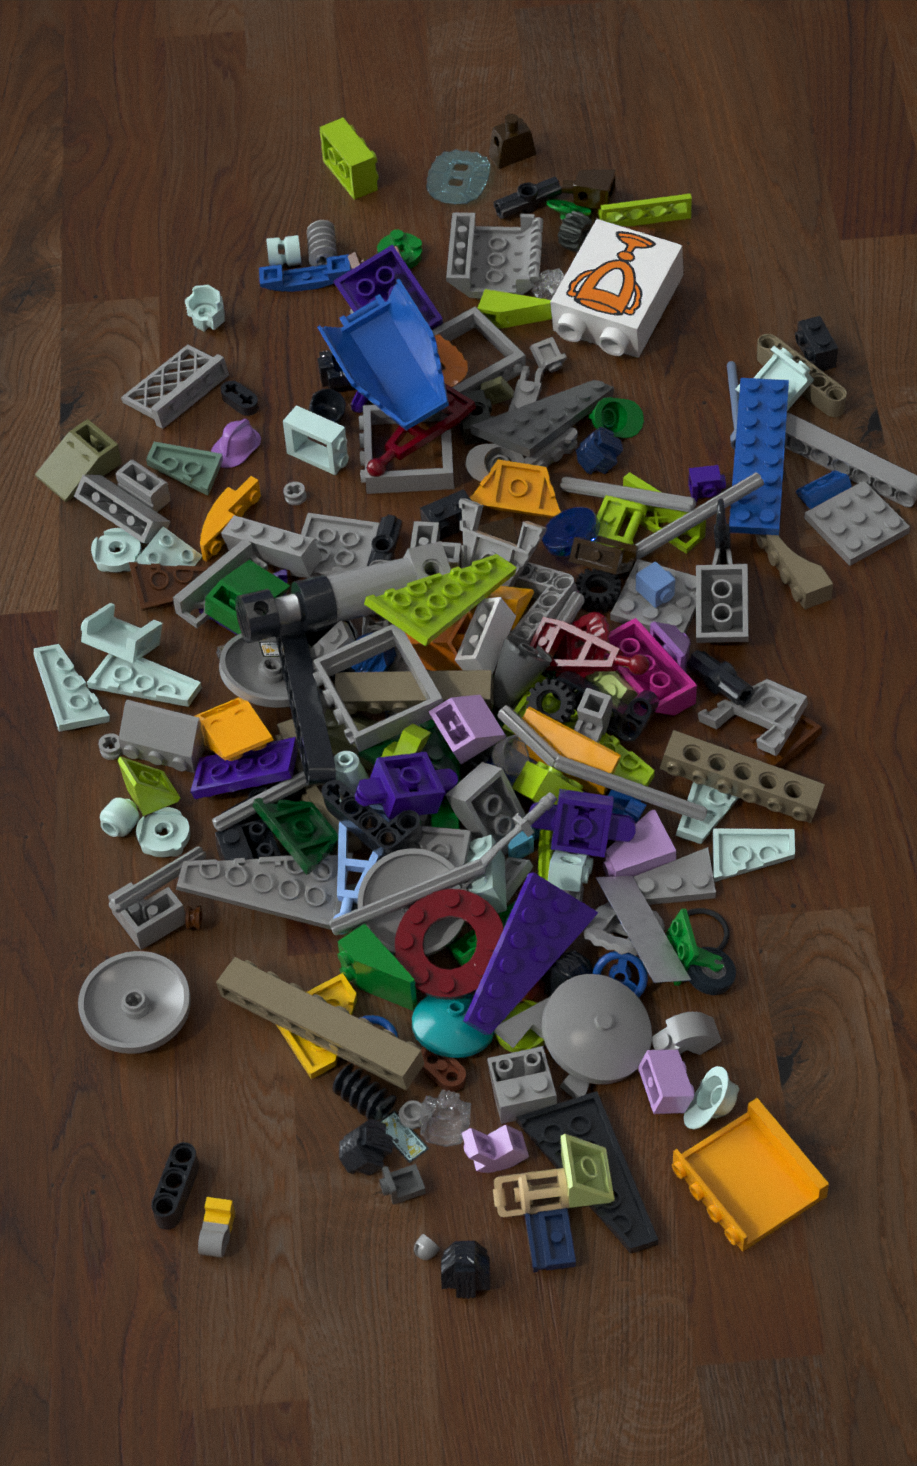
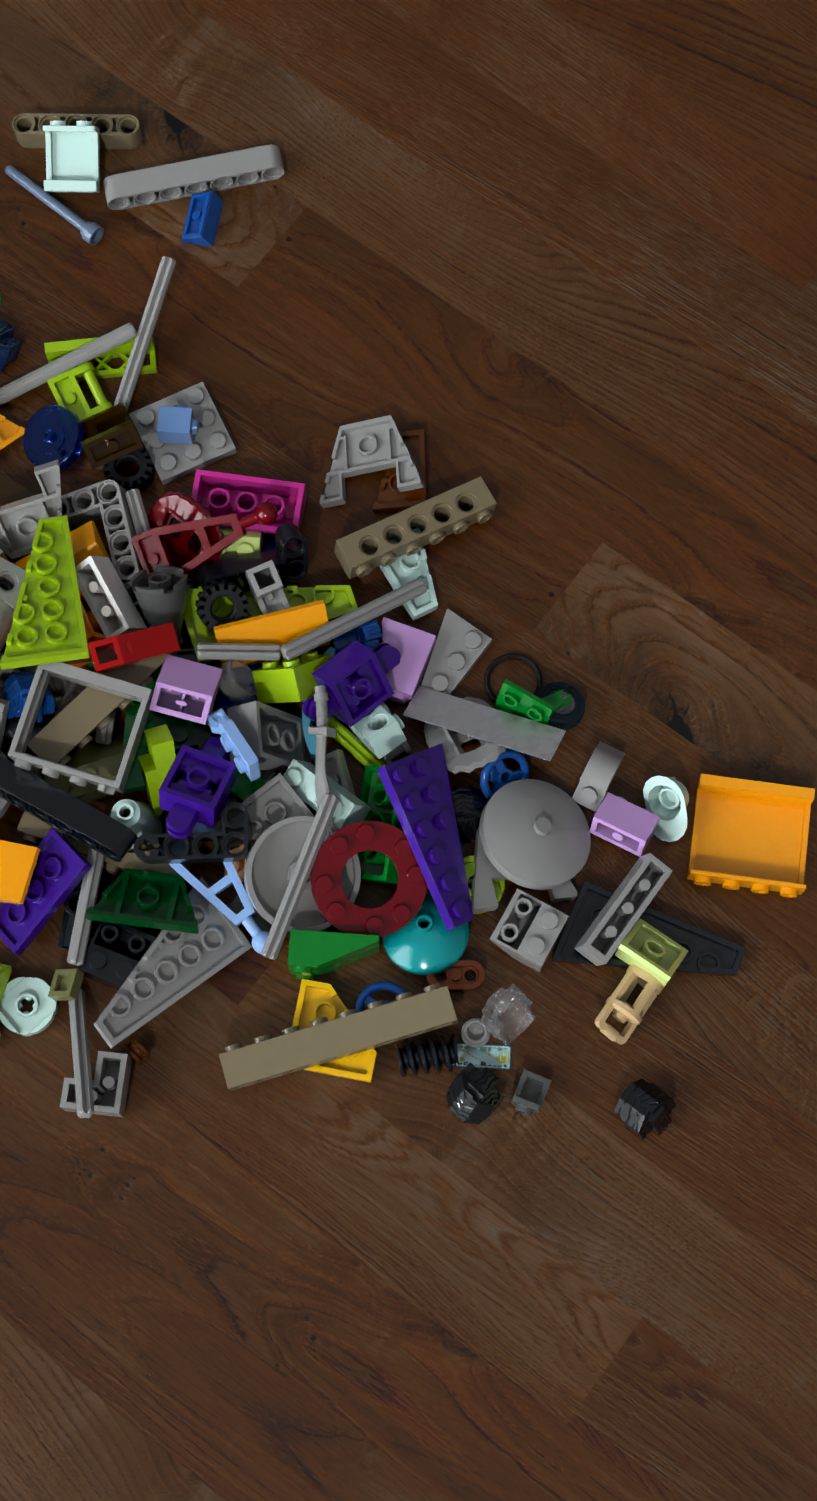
camera: 50 degrees left, 20 degrees up
(134, 1002) = (176, 1166): light grey dish -> none
(177, 1197) = (362, 1259): black beam -> none
(198, 837) = (66, 984): none -> olive plate
(216, 1227) = (440, 1269): leg -> none
(425, 1248) = (599, 1122): light grey hinge -> none
(457, 777) = (234, 741): none -> light blue hinge
(460, 667) = (133, 647): none -> red slope
(496, 1150) = (566, 998): lavender brick -> none
(550, 1240) = (674, 1025): dark blue plate -> none
(598, 1122) = (623, 909): none -> light grey brick
(673, 641) = (247, 463): medium lavender slope -> none
(705, 482) = (108, 296): dark purple brick -> none
(720, 678) = (308, 458): black piece -> none
(722, 592) = (237, 384): light grey slope -> none
(749, 849) = (477, 581): light aqua wing -> none
(761, 451) = (130, 233): blue plate -> none
(806, 580) = (275, 313): dark tan arch -> none
(817, 343) = (60, 90): black brick -> none
(857, 523) = (258, 226): light grey plate -> none

